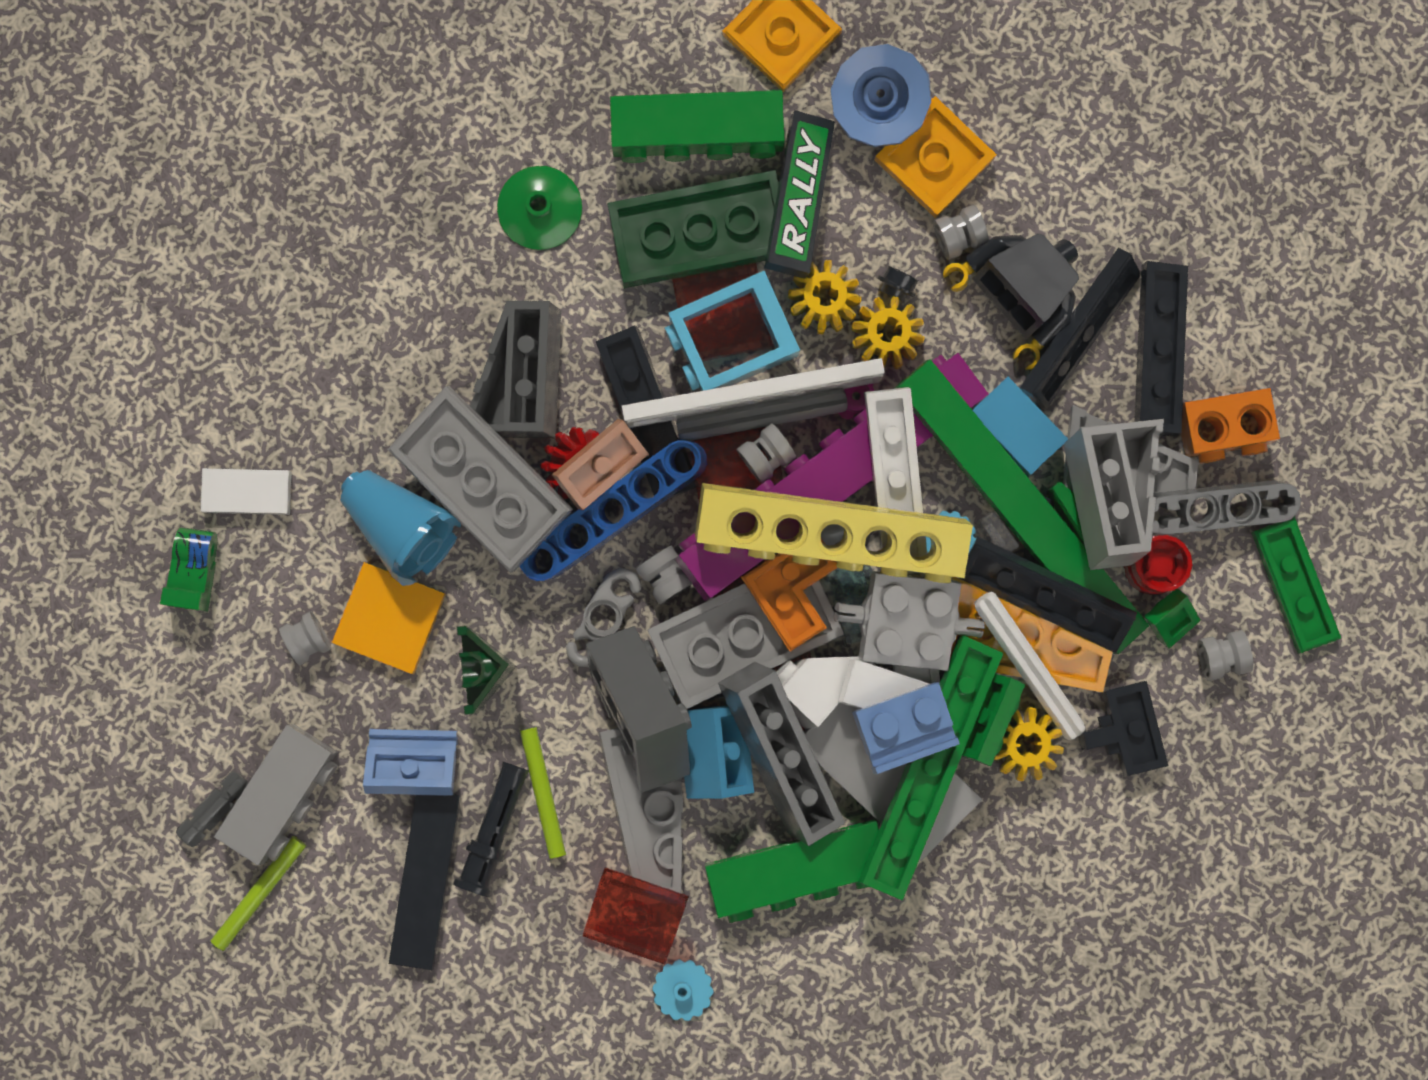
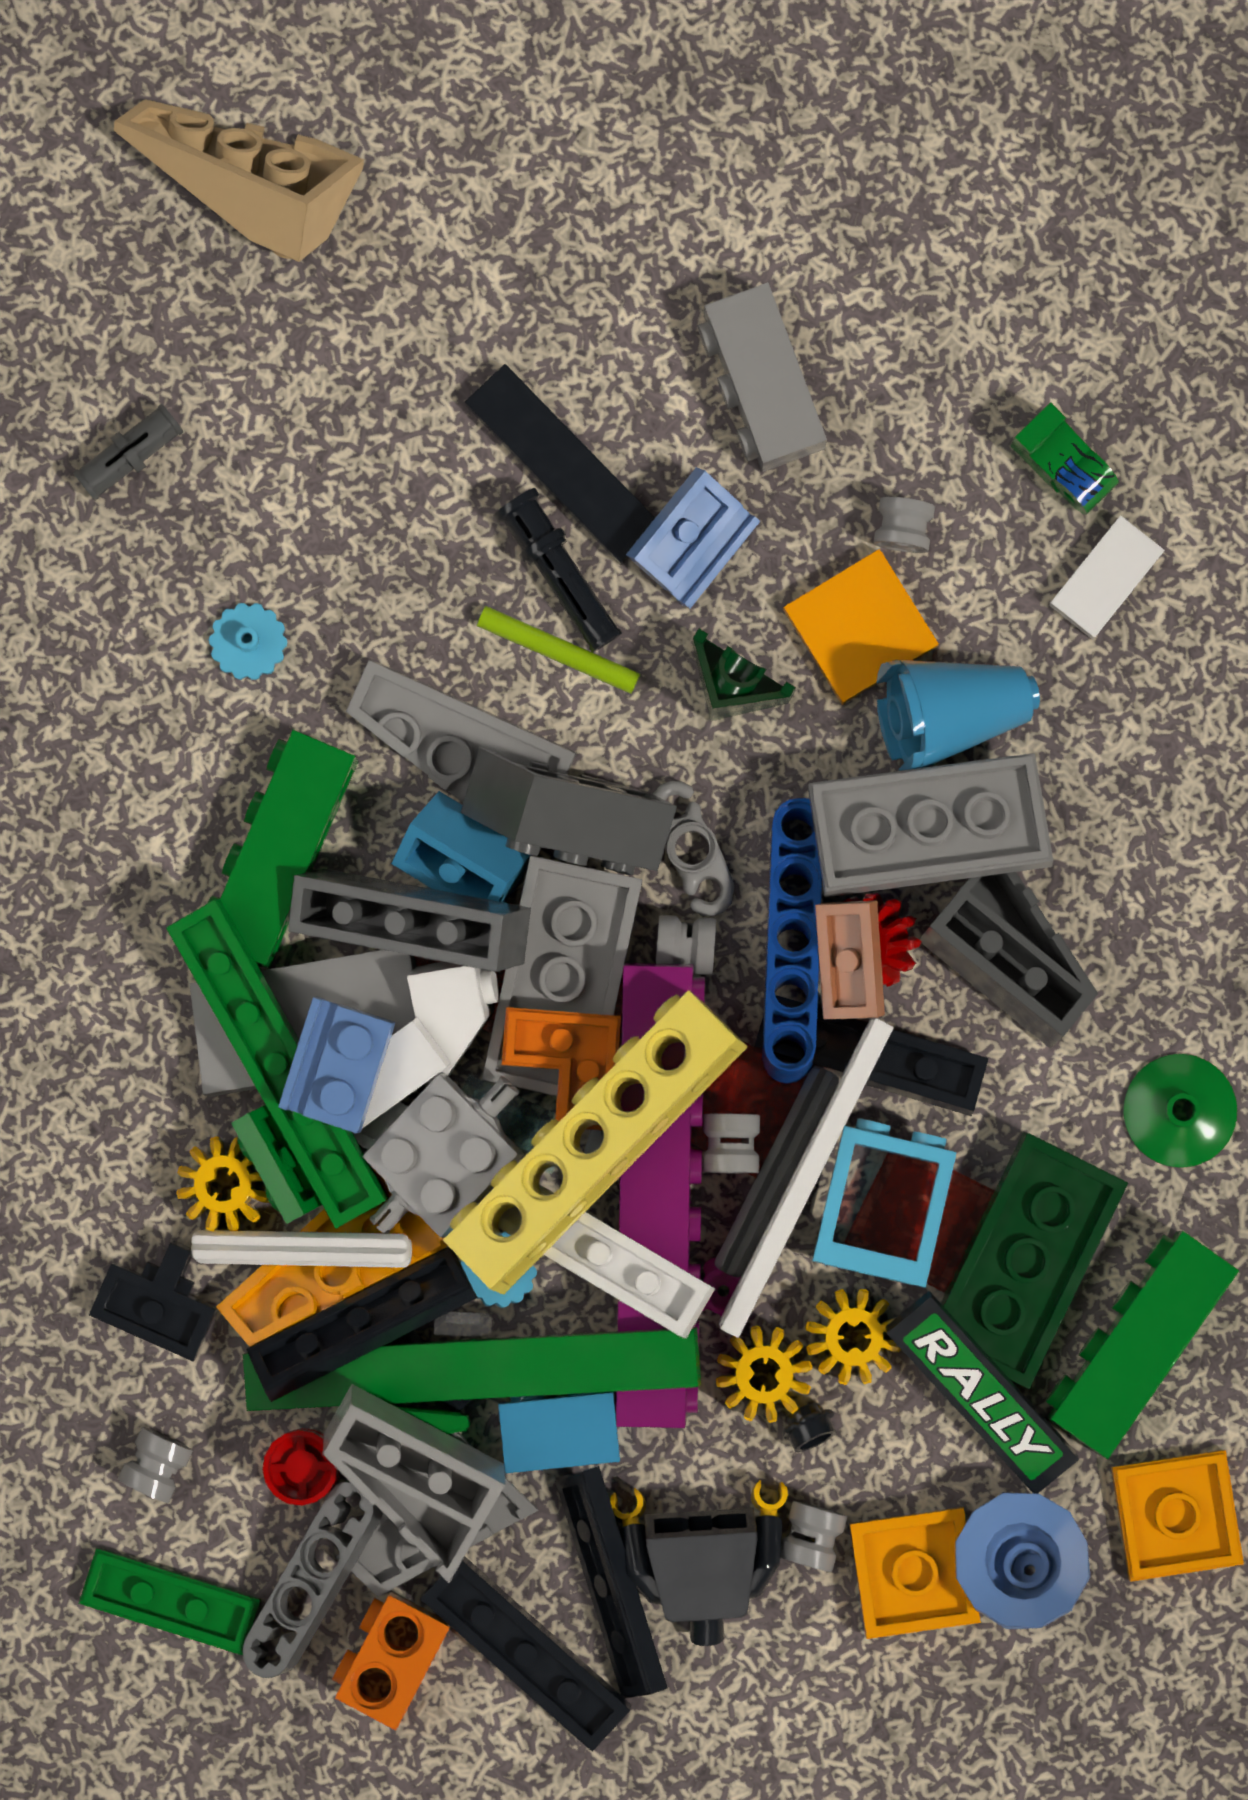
camera: 130 degrees right, 0 degrees up
(212, 809) = (799, 302): dark grey axle -> none
(257, 894) = (677, 284): lime bar -> none
(635, 915) = (360, 647): clear red tile -> none
(1172, 618) = (236, 1440): green plate -> none

